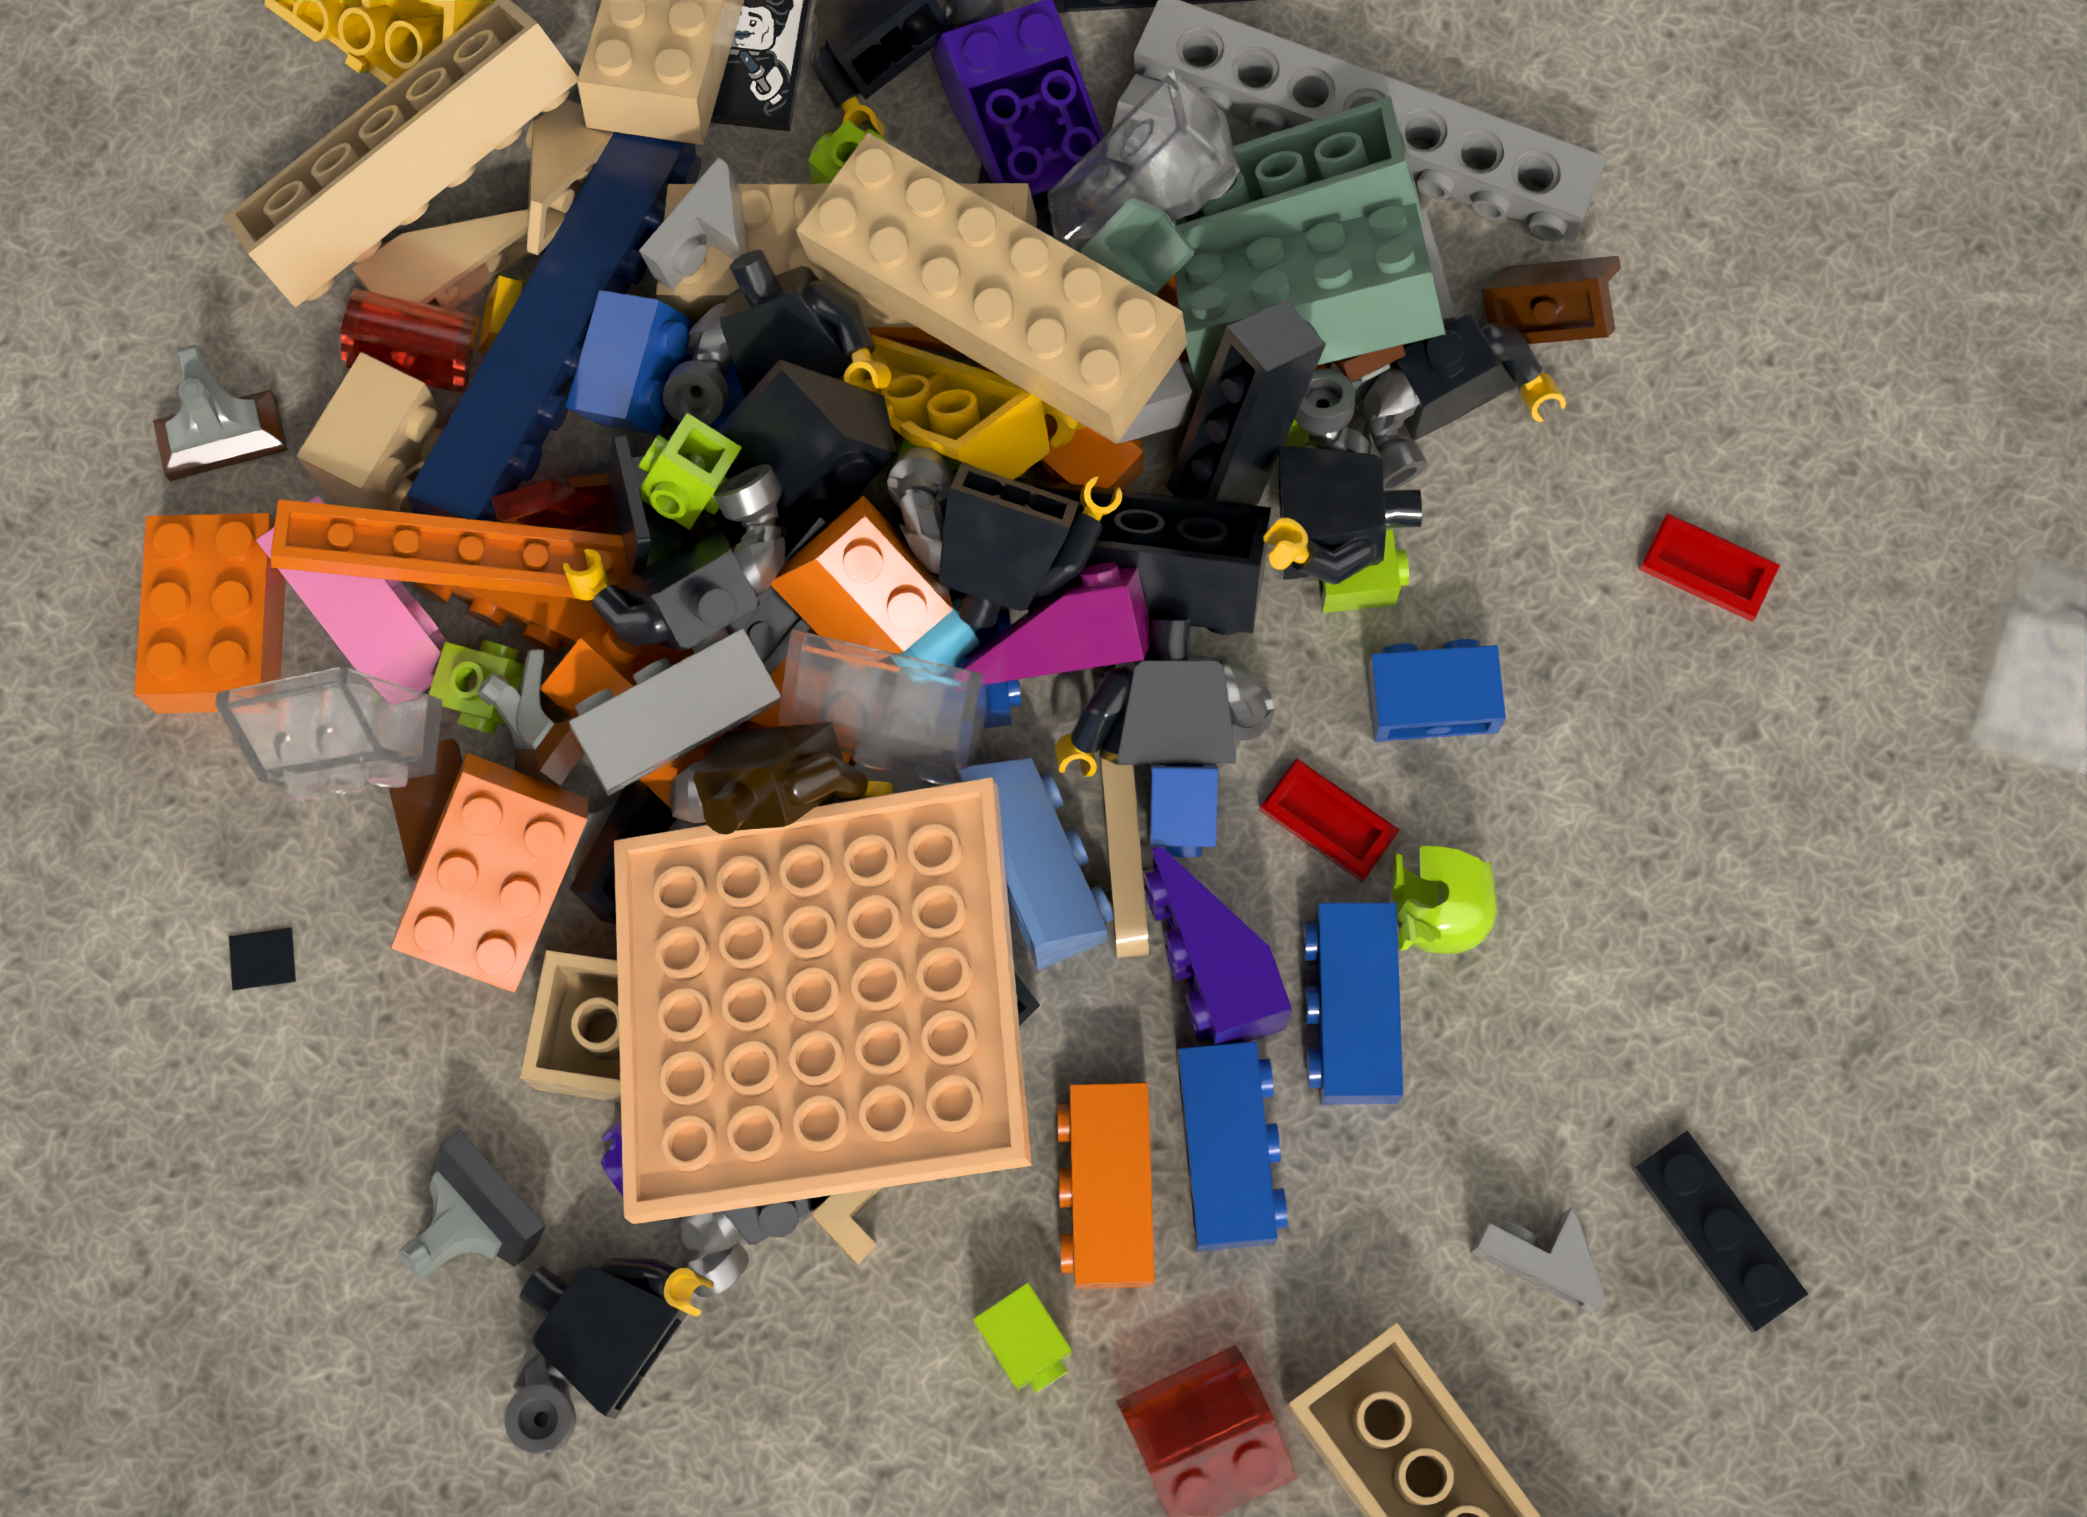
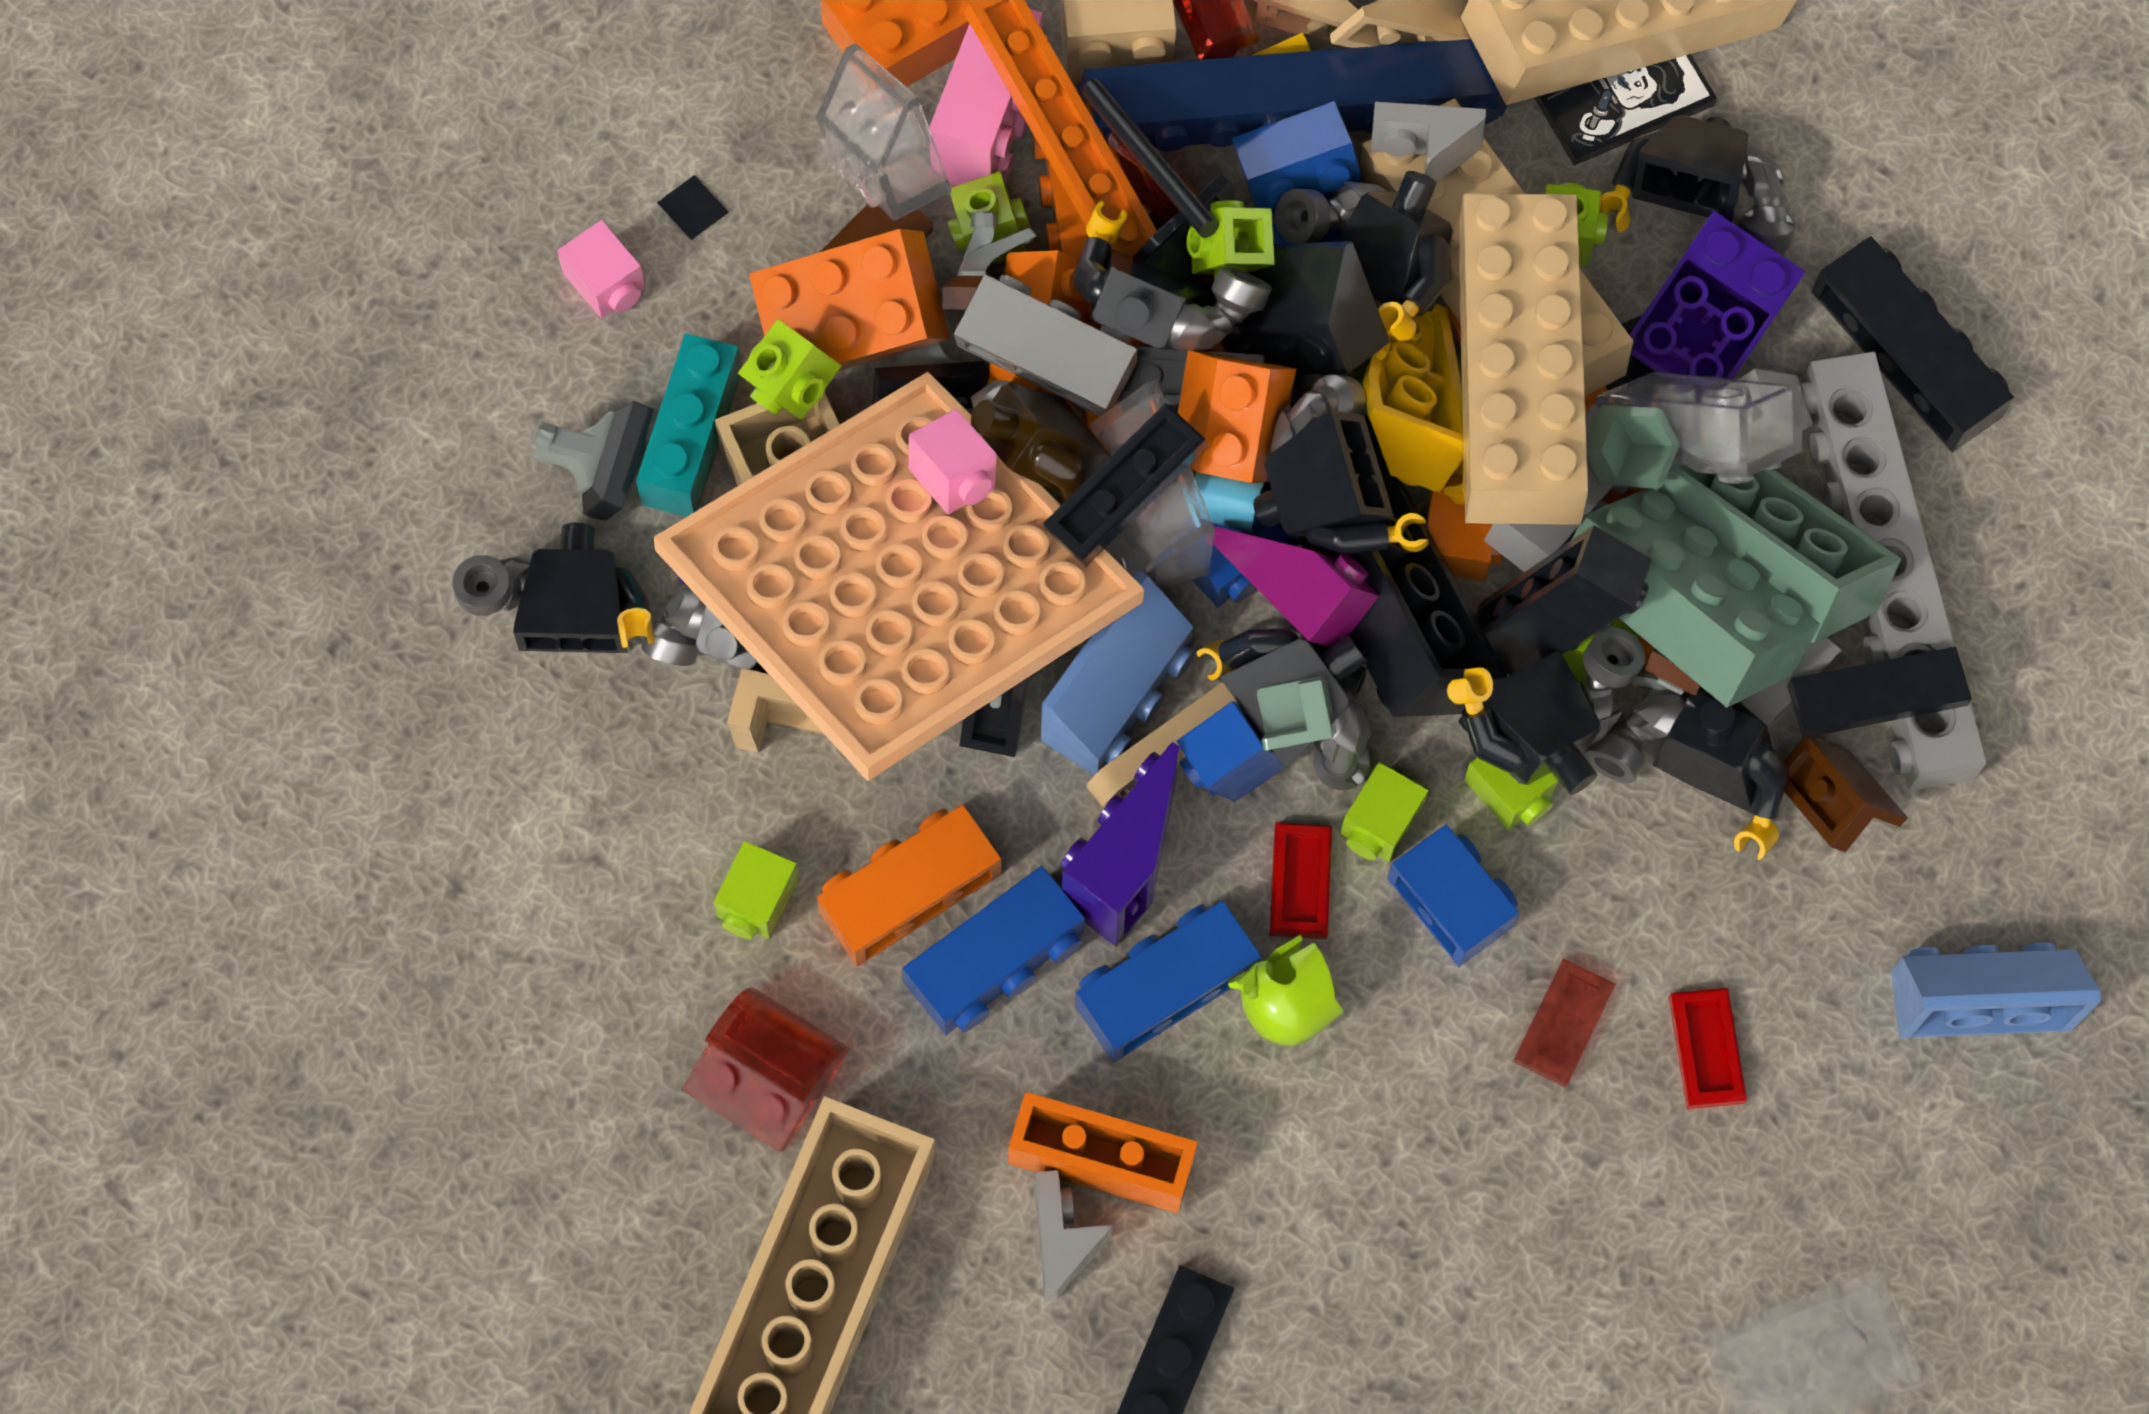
camera: 50 degrees right, 5 degrees down
(272, 1089) = (602, 270): none -> bright pink brick
(498, 1105) = (685, 427): none -> teal brick
(529, 975) = (788, 371): none -> lime brick
(553, 490) = (1150, 158): none -> black bar
(742, 875) = (952, 461): none -> bright pink brick
(880, 726) = (1125, 484): none -> black tile
(1204, 718) = (1296, 712): none -> sand green panel
(1318, 704) = (1382, 813): none -> lime brick
(1489, 201) = (1879, 692): none -> black tile
(1493, 1170) = (1102, 1152): none -> orange brick
(1610, 674) = (1564, 1023): none -> clear red tile
(1812, 291) = (1991, 991): none -> medium blue slope

